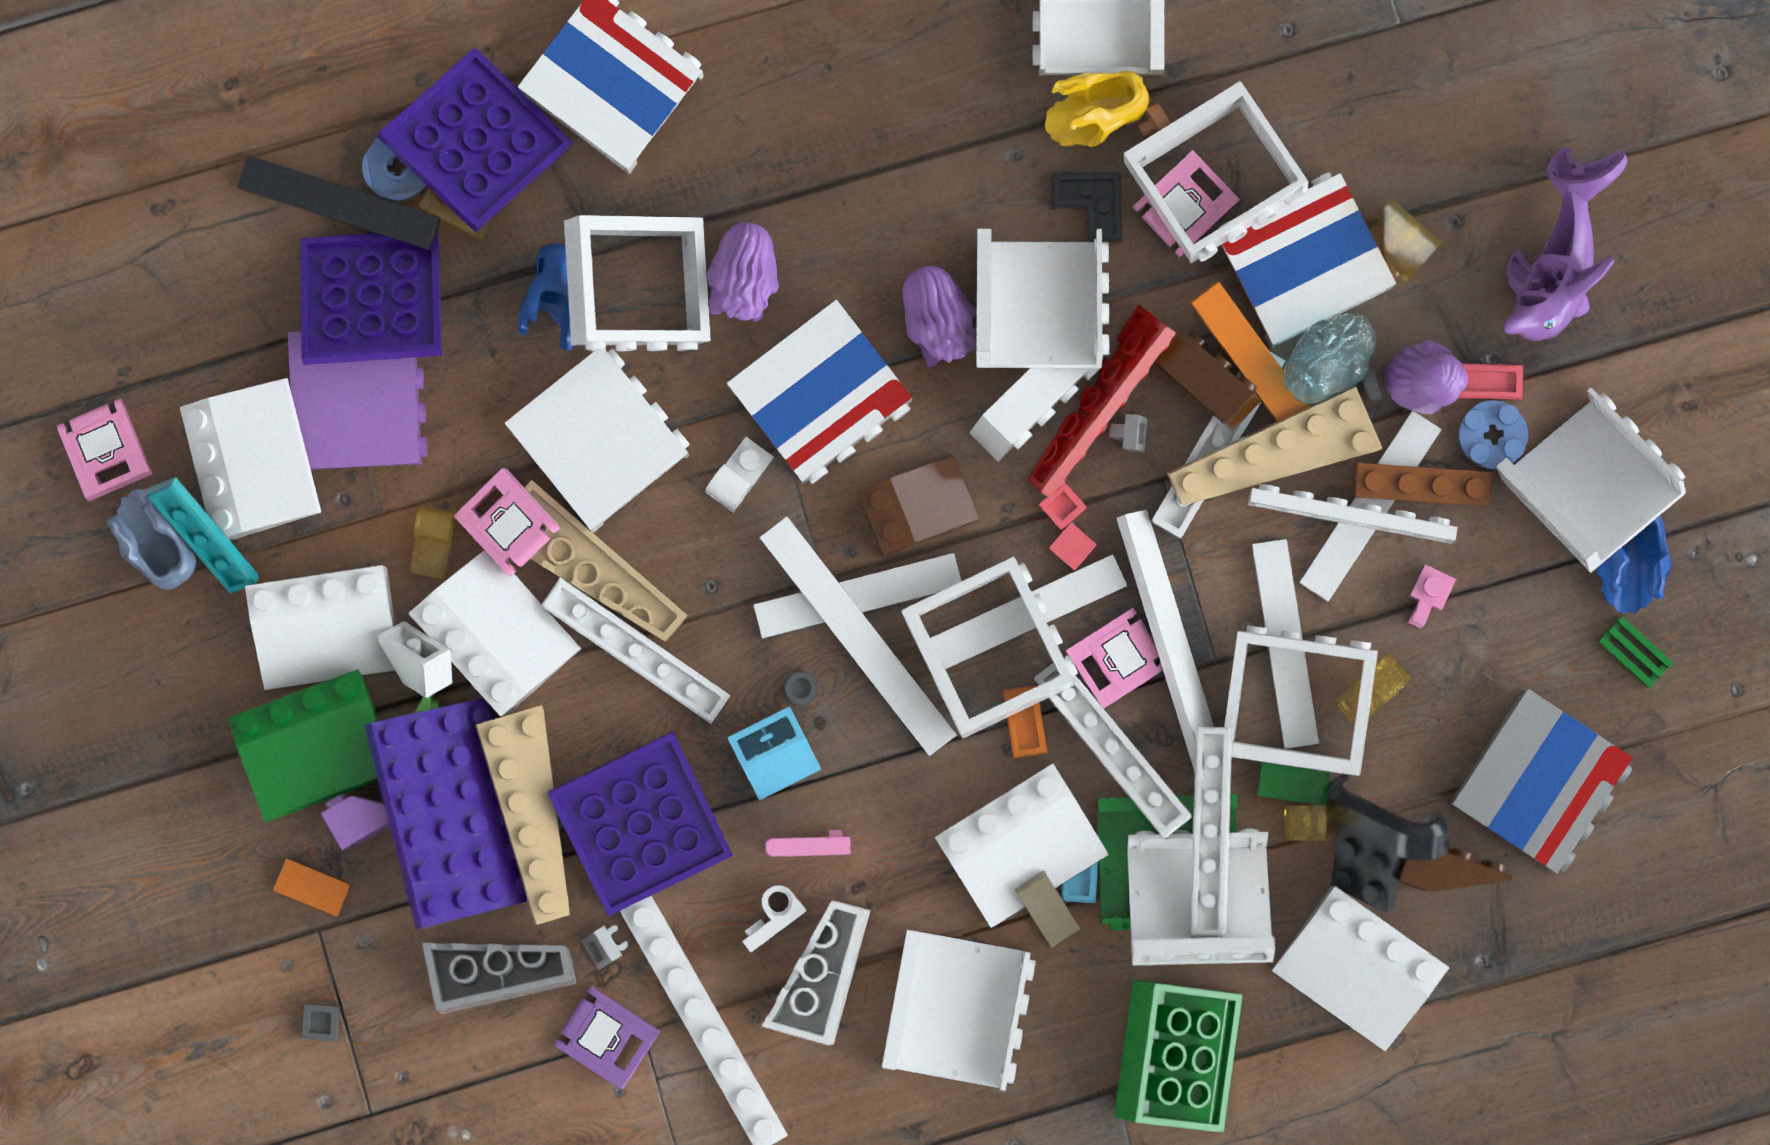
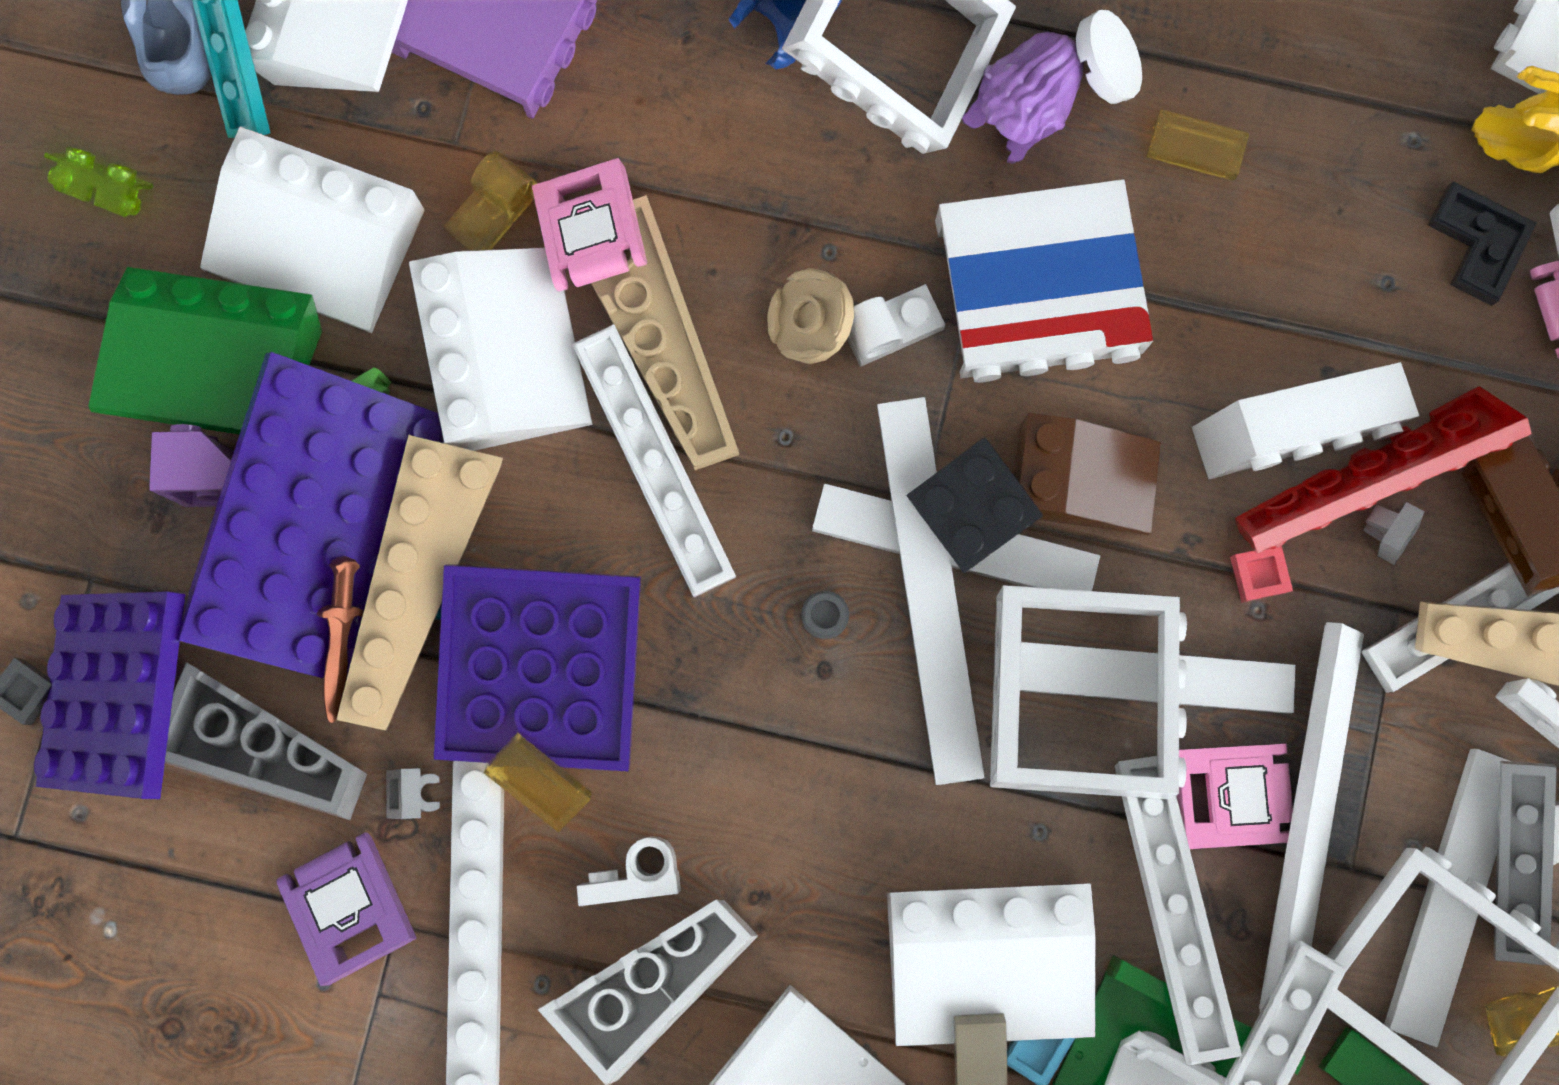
camera: 30 degrees right, 5 degrees down
(147, 671) = (78, 175): none -> clear neon green hinge
(312, 887) = (111, 525): orange tile -> none
(387, 987) = (110, 693): none -> dark purple plate
(417, 658) = (387, 321): white slope -> none
(501, 860) = (339, 619): none -> copper sword
(598, 437) = (752, 187): white panel -> none
(681, 893) = (537, 782): none -> clear yellow tile
(684, 501) = (810, 316): none -> tan tile
(774, 753) = (748, 673): medium azure slope -> none
(782, 218) = (1110, 56): none -> white tile
(831, 845) = (756, 829): bright pink container -> none
(856, 569) = (974, 505): none -> black plate
(872, 240) = (1197, 145): none -> clear yellow tile
(938, 315) = (1235, 263): medium lavender hair -> none
(1025, 727) = (1073, 816): orange tile -> none
(1041, 303) = (1372, 319): white panel -> none
(1072, 546) = (1248, 628): coral tile -> none
(1309, 593) = (1525, 851): none -> light grey plate

